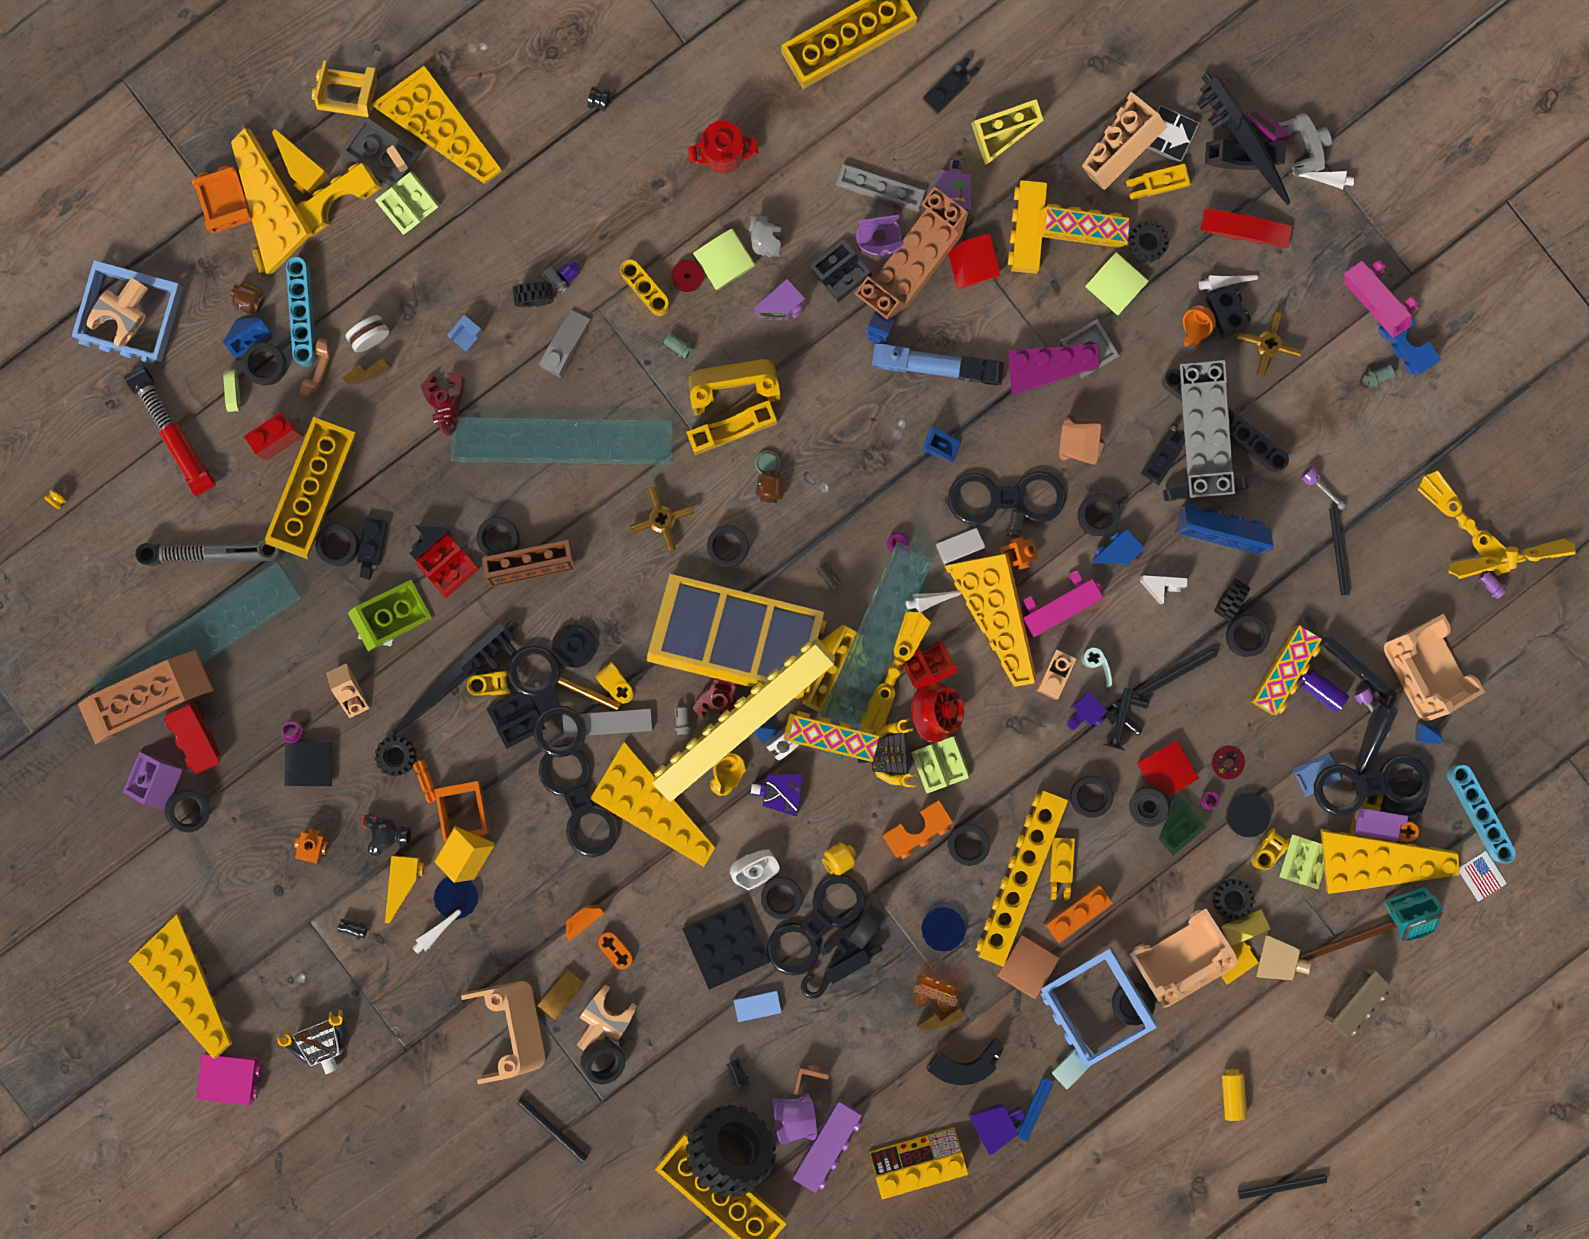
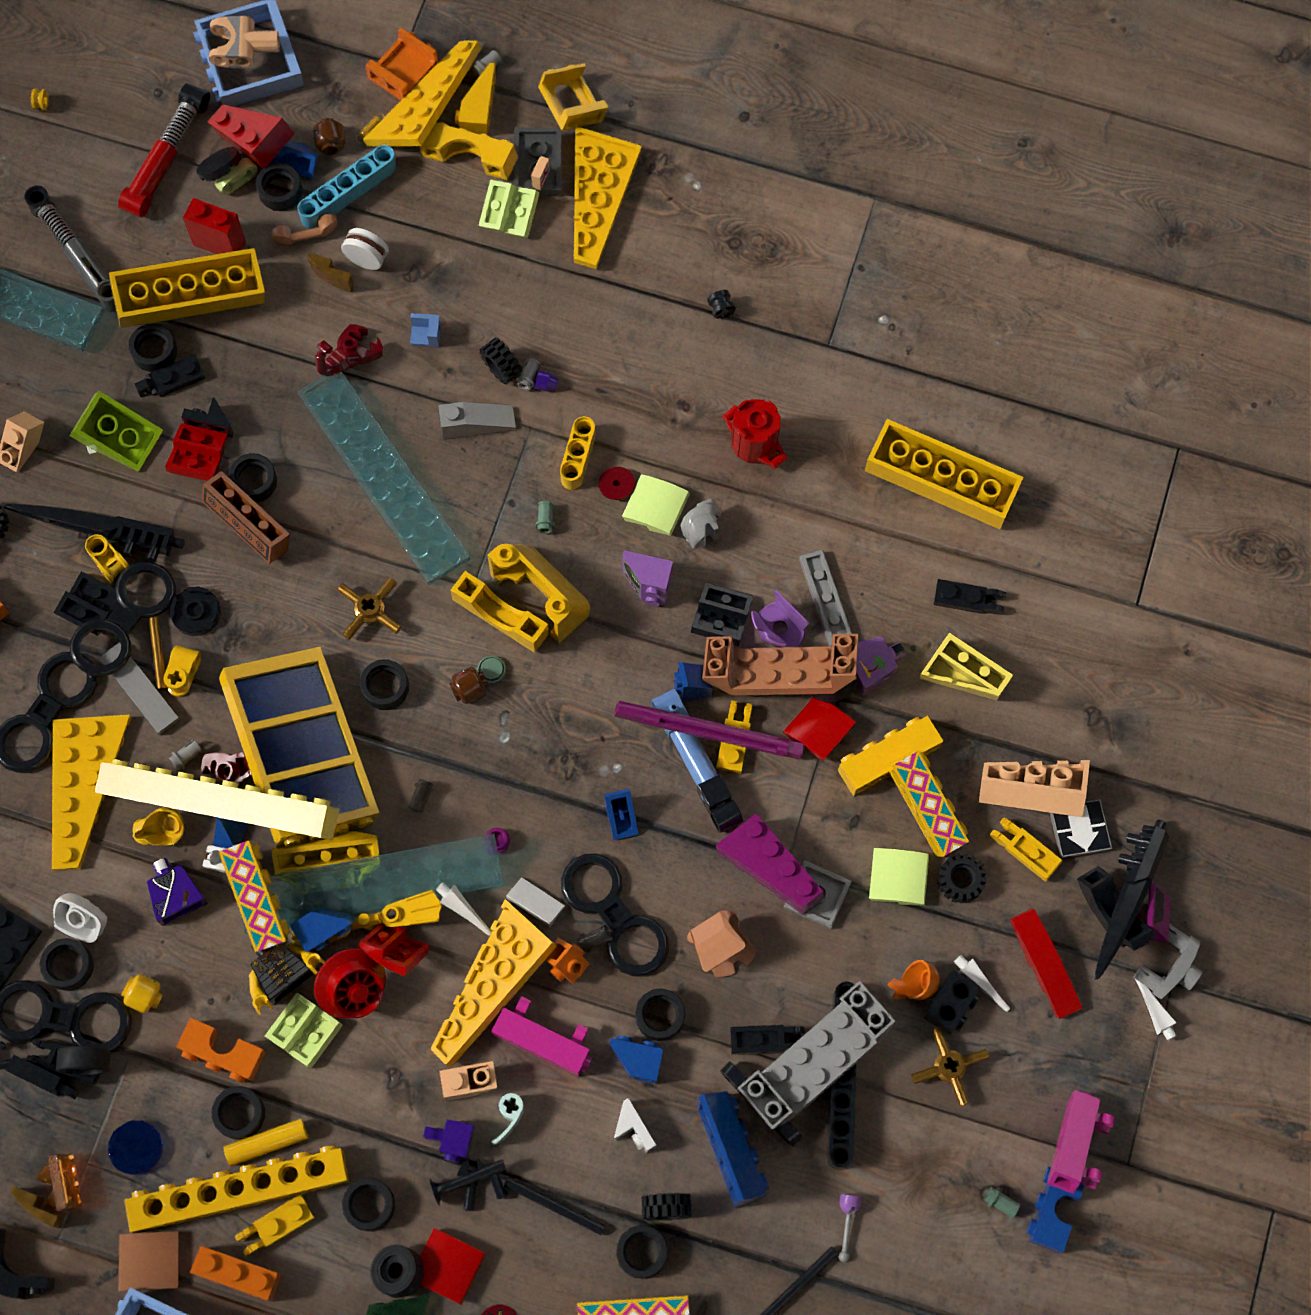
camera: 55 degrees right, 15 degrees down
(207, 355) = (252, 132): none -> red wedge
(214, 397) = (218, 164): none -> black tile
(267, 139) = (480, 66): none -> light grey pin
(879, 705) = (319, 925): none -> blue slope
(926, 341) = (708, 730): none -> magenta piece
(939, 327) = (732, 756): none -> yellow hinge
(1001, 838) = (265, 1142): none -> yellow piece

